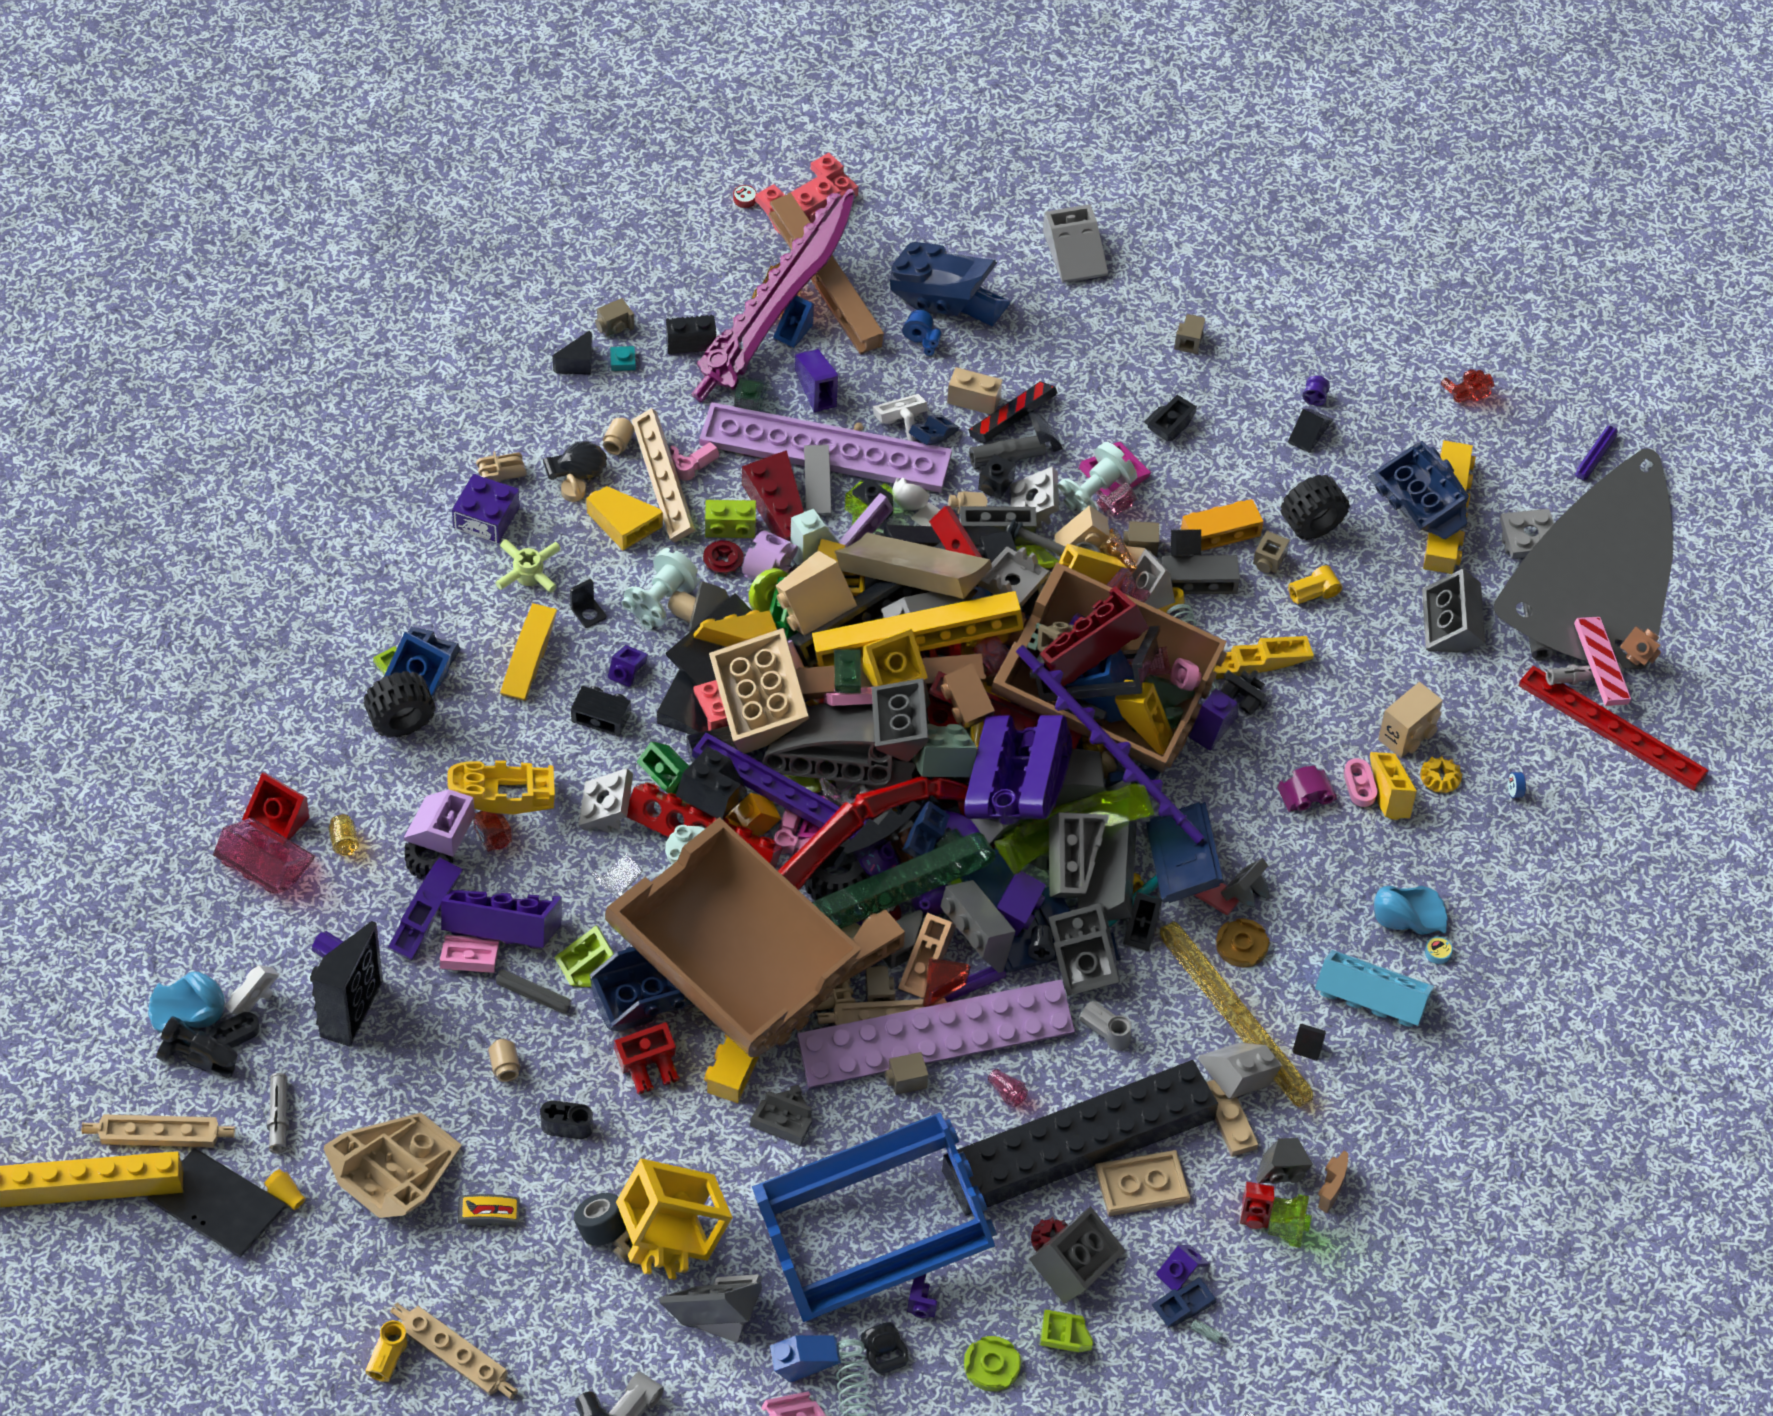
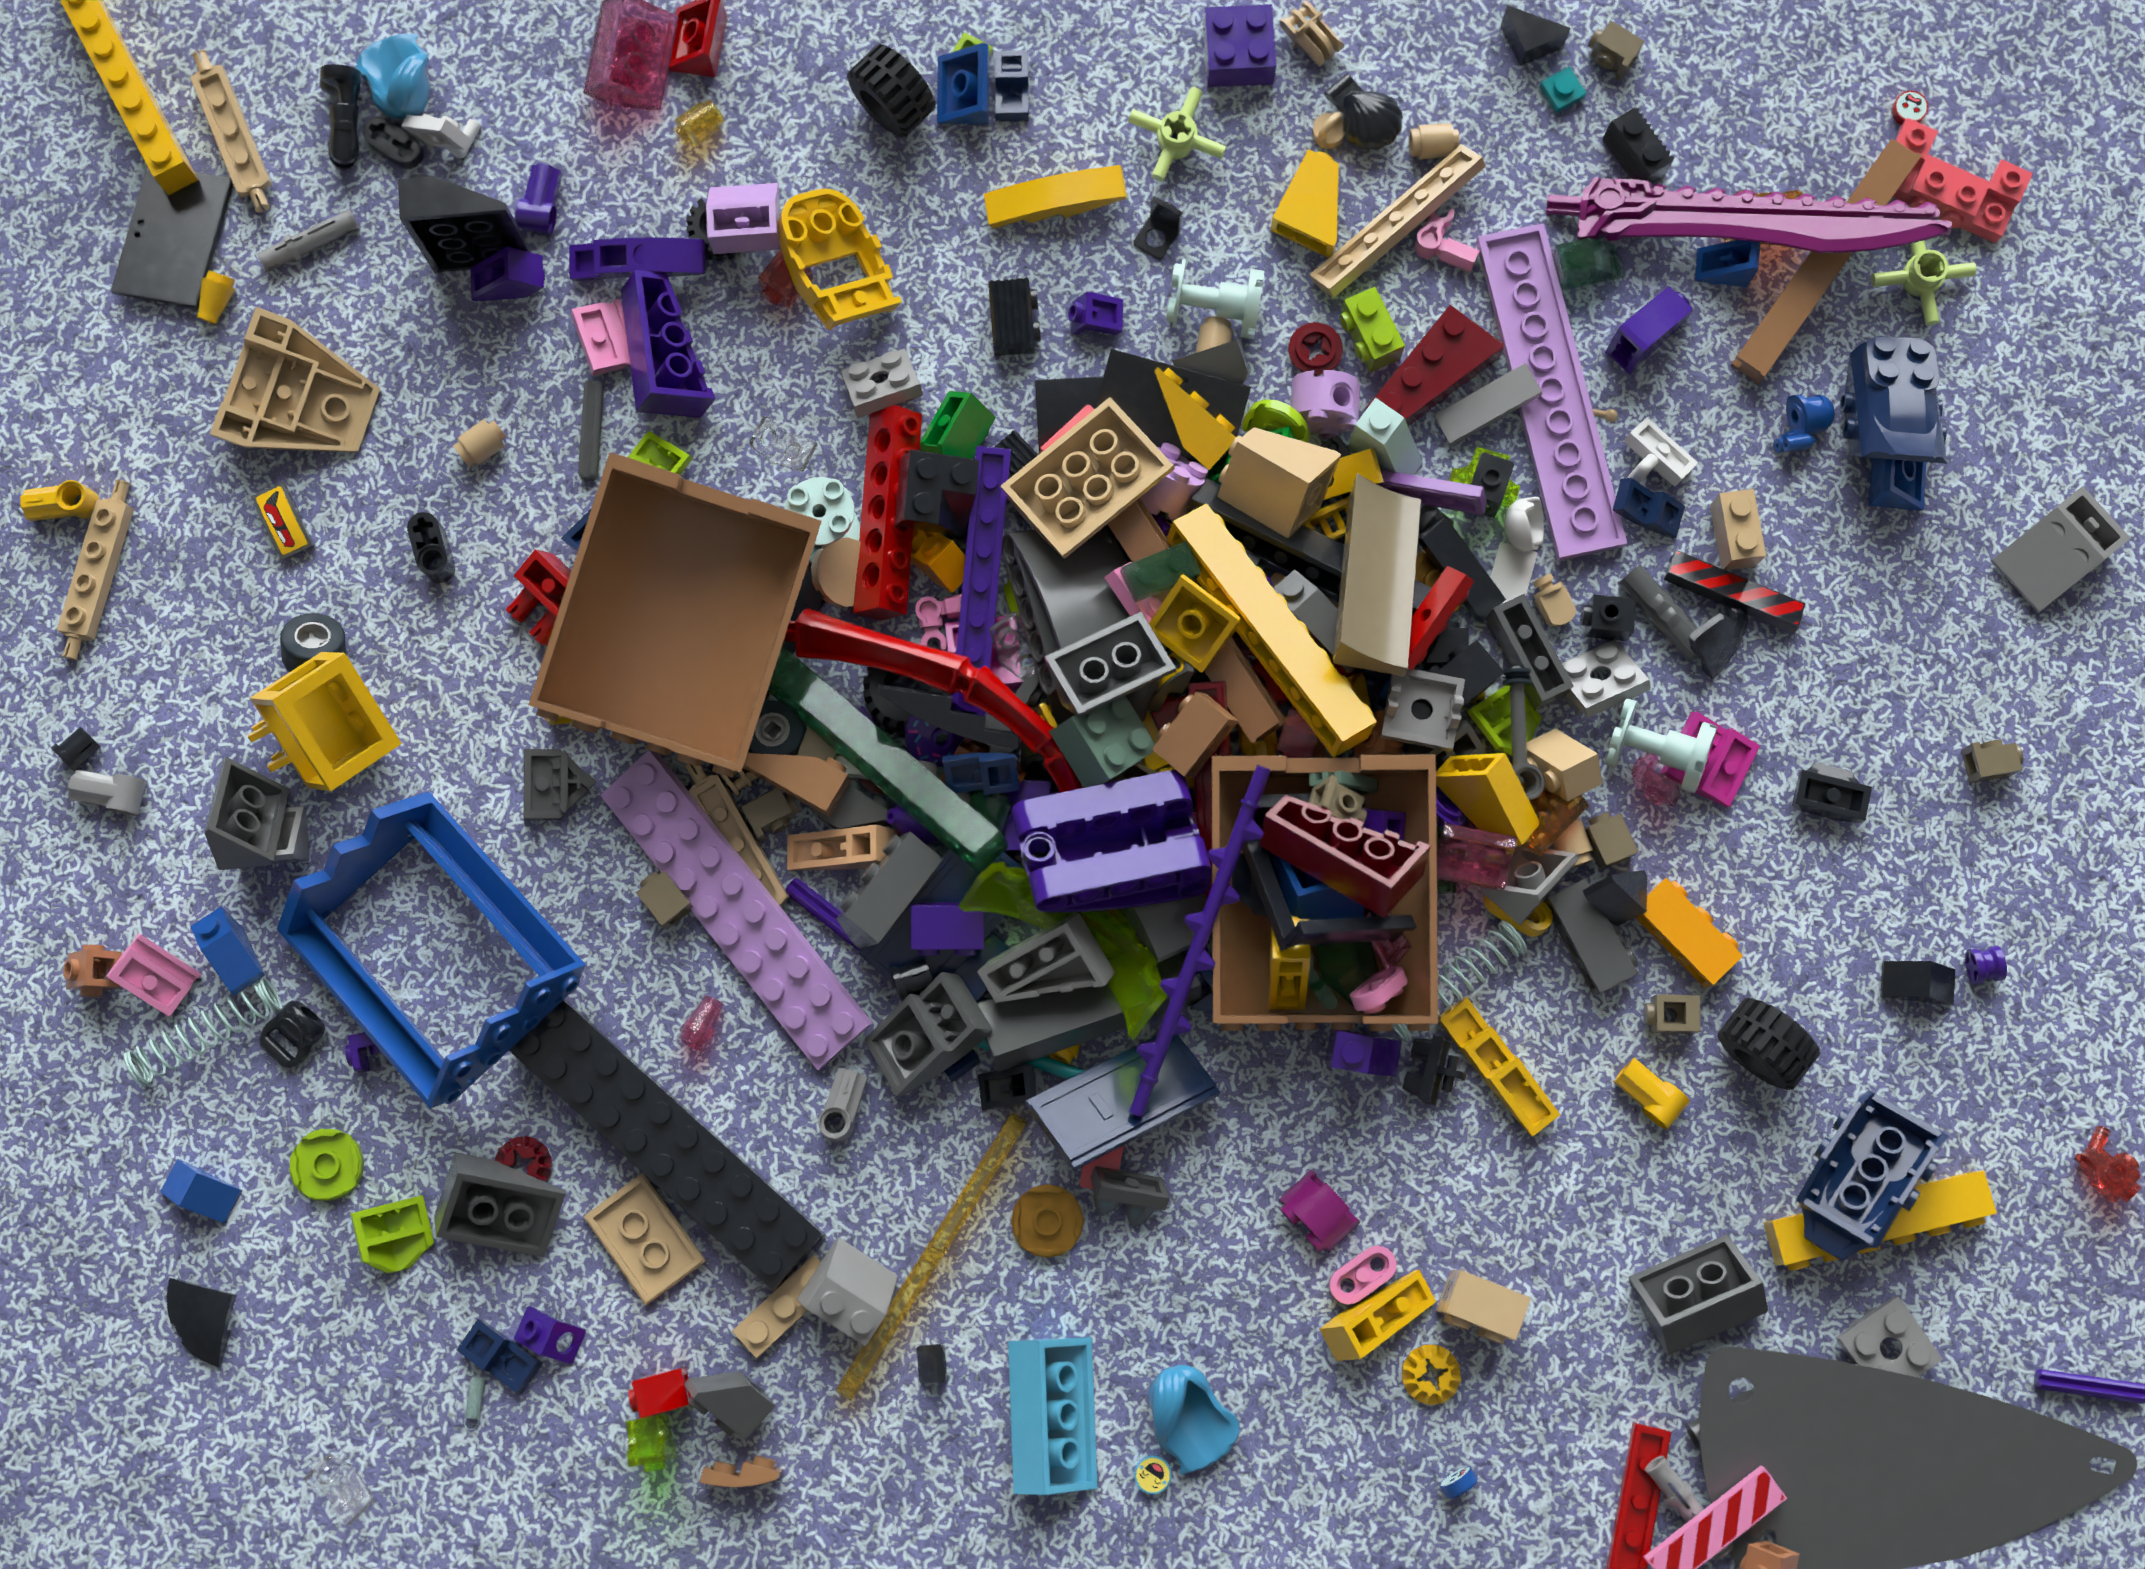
camera: 70 degrees right, 25 degrees up
(386, 996) = (507, 275): none -> dark purple slope
(861, 234) = (1917, 280): none -> yellowish green bar
(942, 979) = (798, 881): clear red slope -> none

